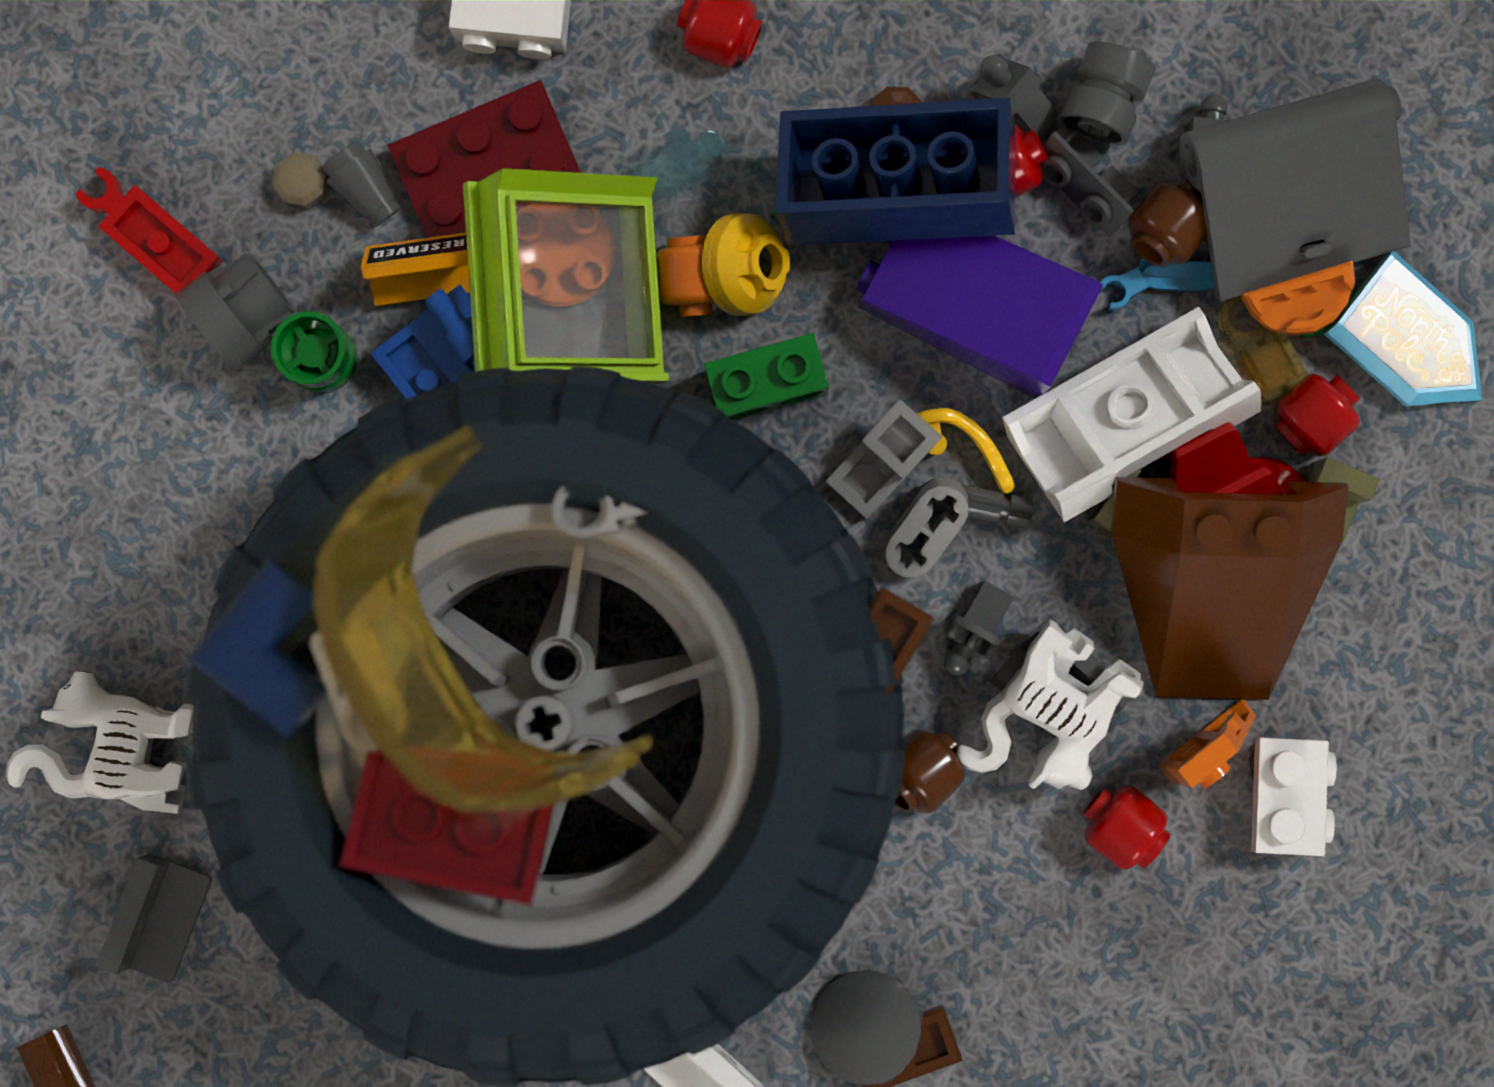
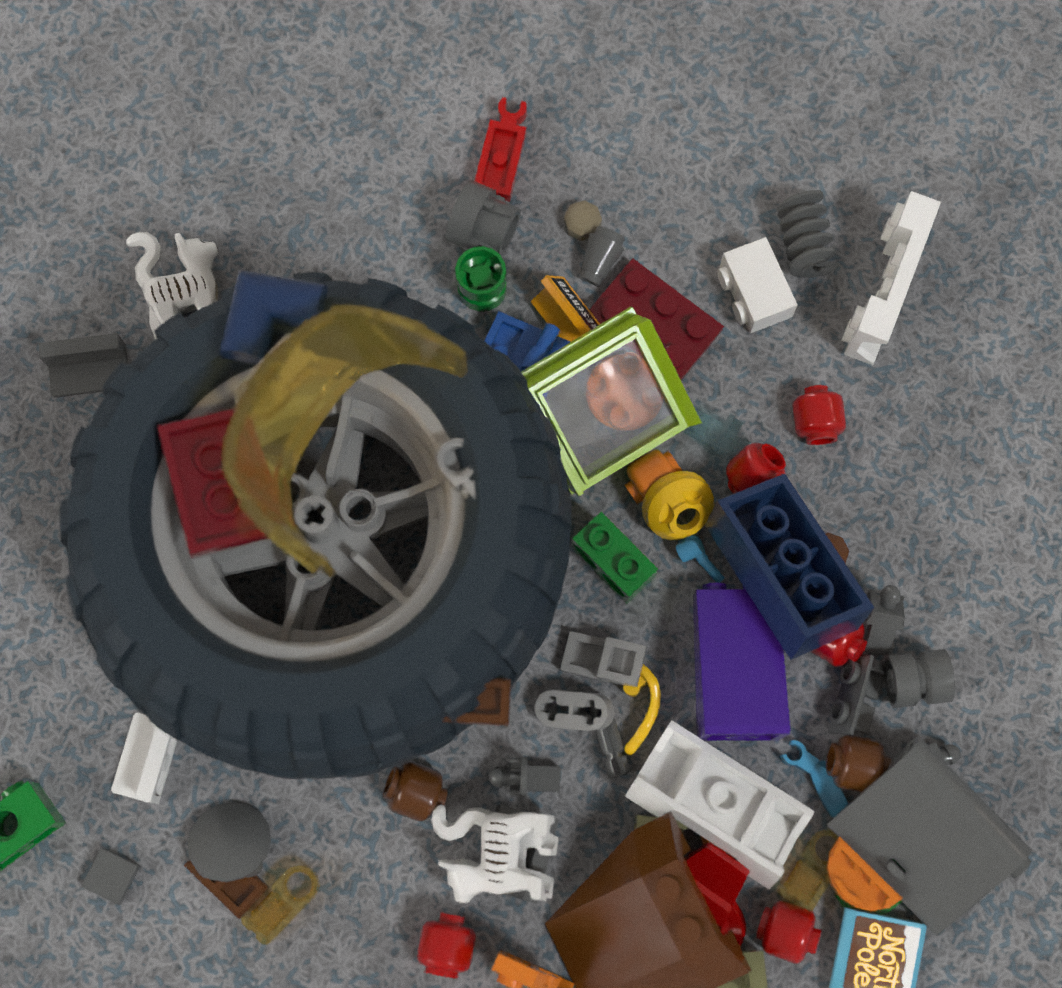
camera: 60 degrees right, 10 degrees down
(748, 144) = (753, 466): none -> red head
(804, 274) = (693, 548): none -> dark azure hand
(974, 1004) = (280, 906): none -> clear yellow piece

